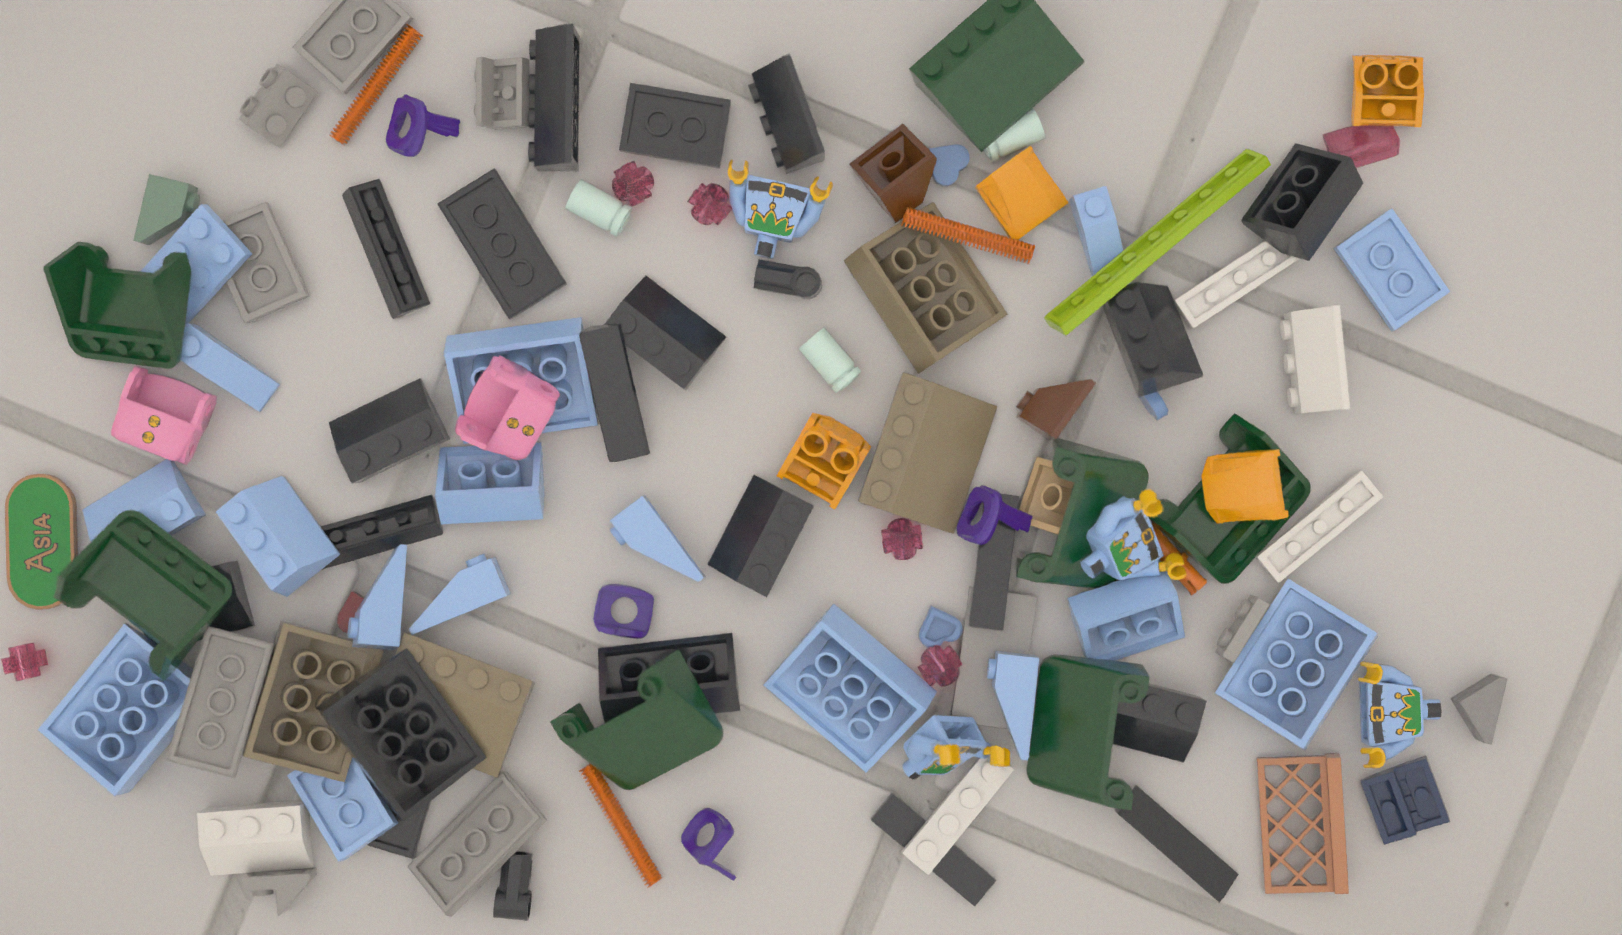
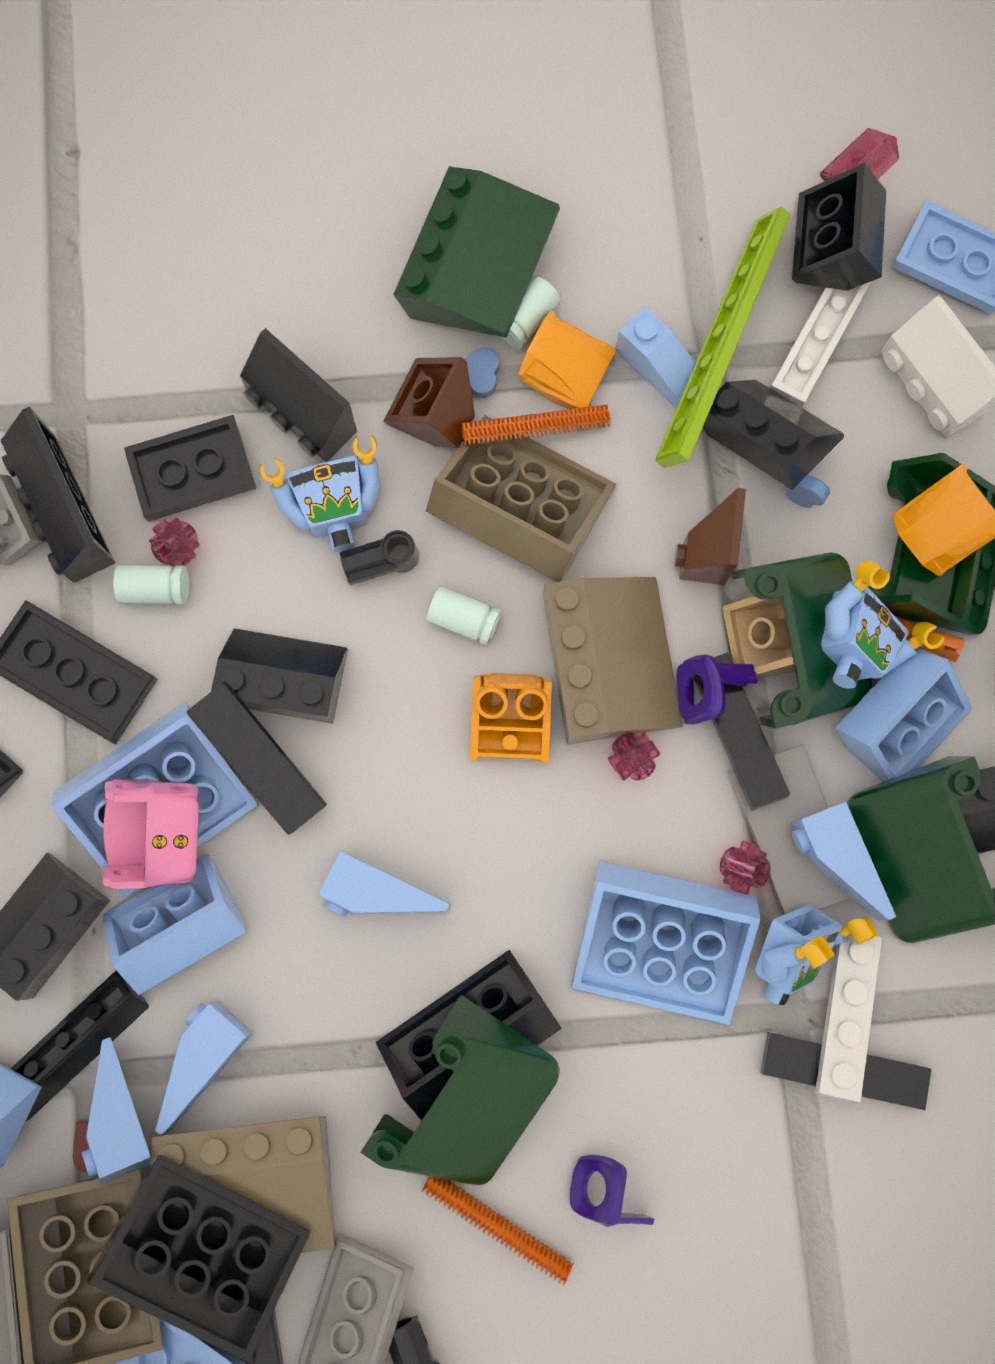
camera: 30 degrees left, 10 degrees down
(607, 624) = (365, 1006): dark purple piece -> none
(709, 204) = (262, 523): clear pink gear -> none
(760, 535) = (486, 829): black slope -> none
(939, 627) = (720, 830): medium blue tile -> none
(1393, 96) = (863, 102): light orange slope -> none

